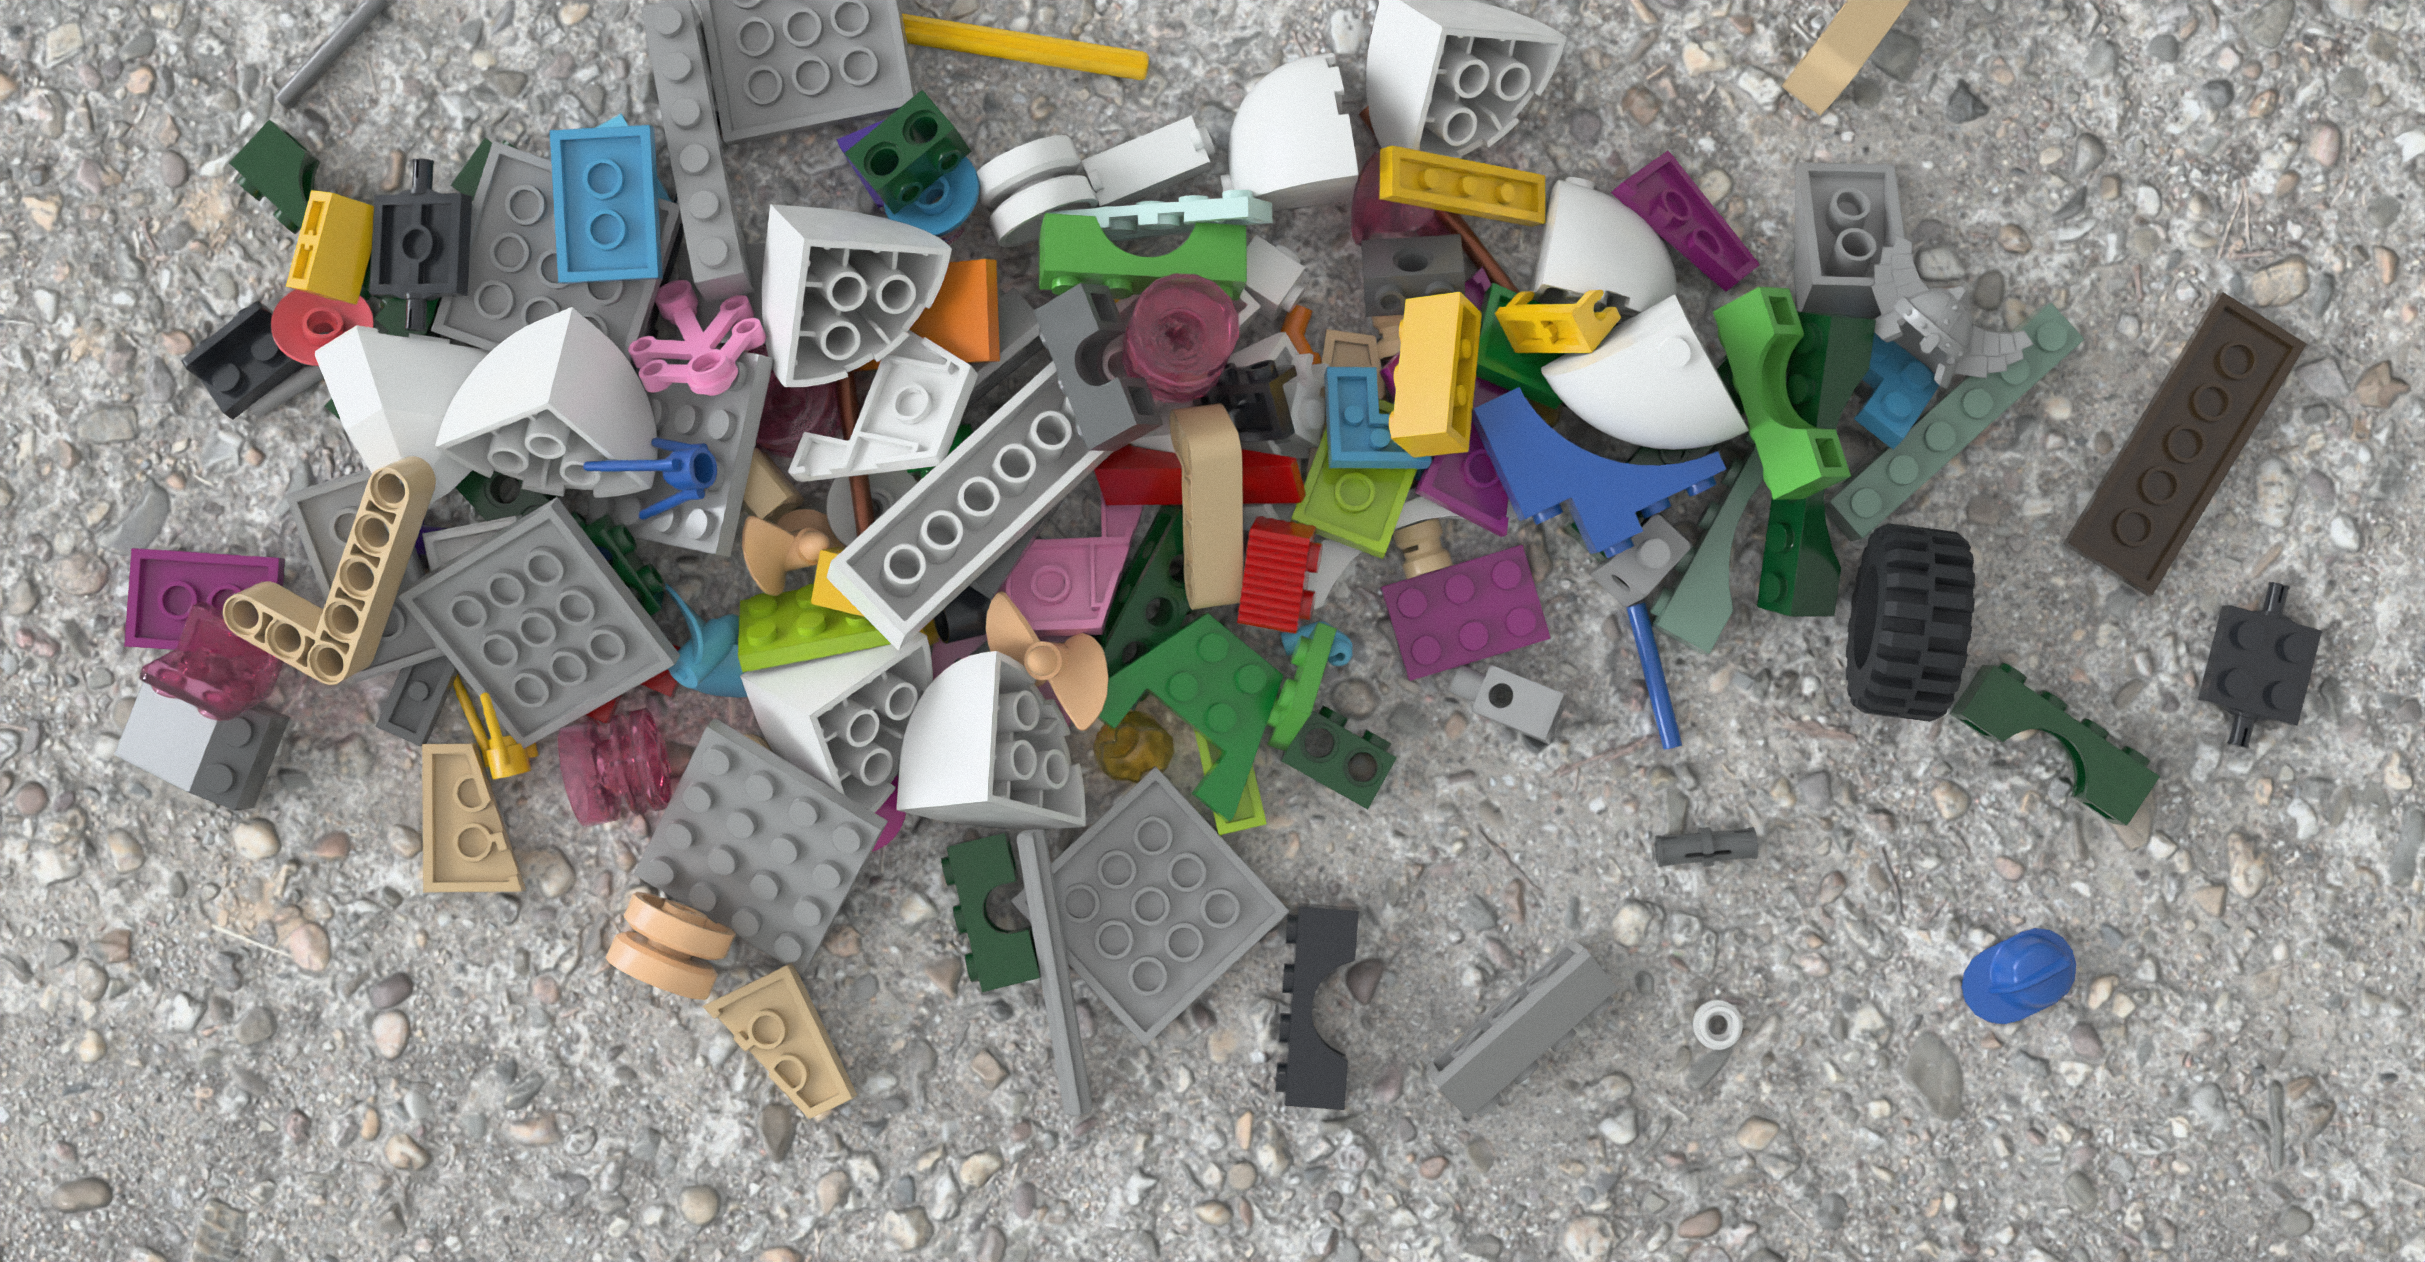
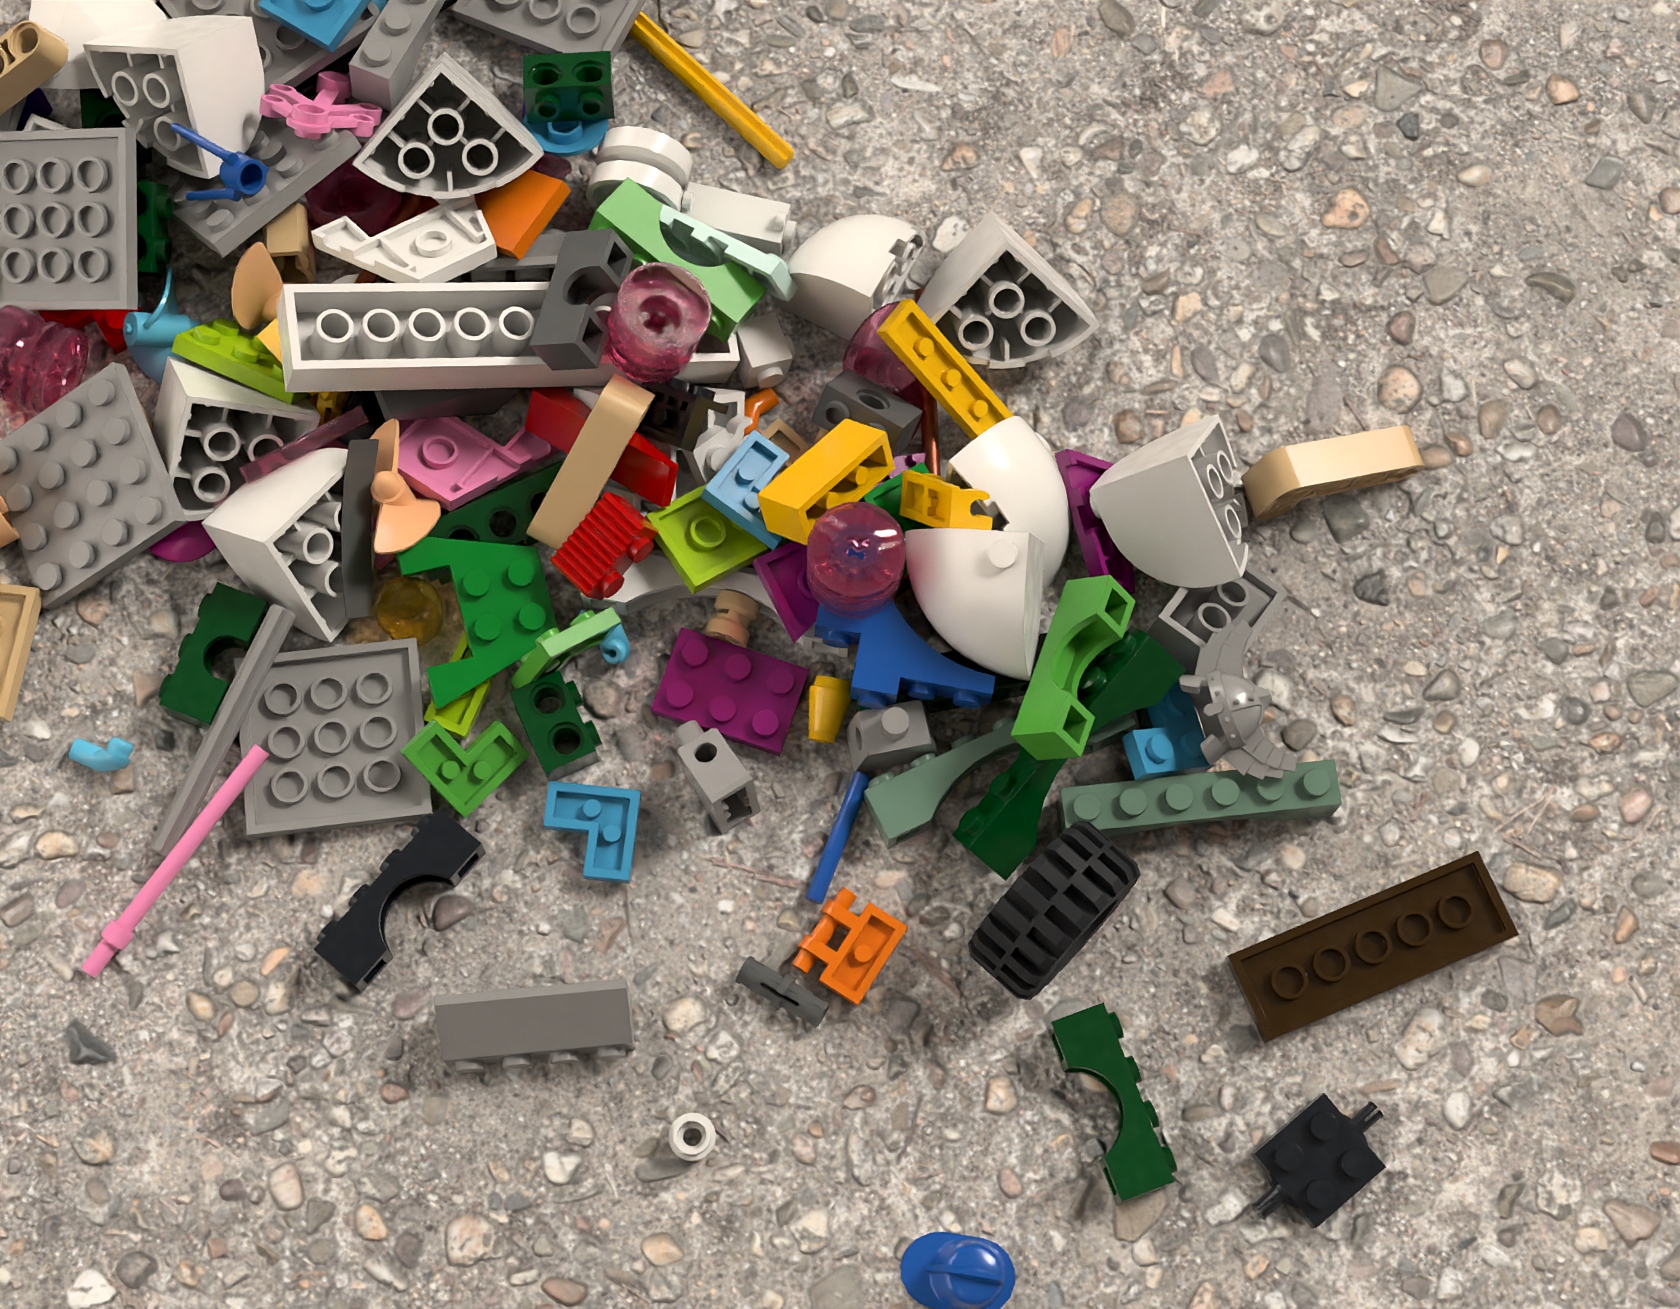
camera: 30 degrees right, 15 degrees down
(933, 672) = (304, 444): none -> clear pink bar
(961, 1069) = (102, 759): none -> medium azure arm
(1041, 717) = (357, 528): none -> dark grey sticker
(1098, 1205) = (119, 933): none -> bright pink bar
(1295, 856) = (469, 774): none -> bright green plate
(1441, 804) = (606, 816): none -> dark azure plate
(1503, 453) = (846, 583): none -> clear pink wheel
(1564, 567) = (827, 708): none -> yellow cone
(1749, 161) = (1177, 507): none -> white brick
(1750, 766) = (861, 955): none -> orange plate

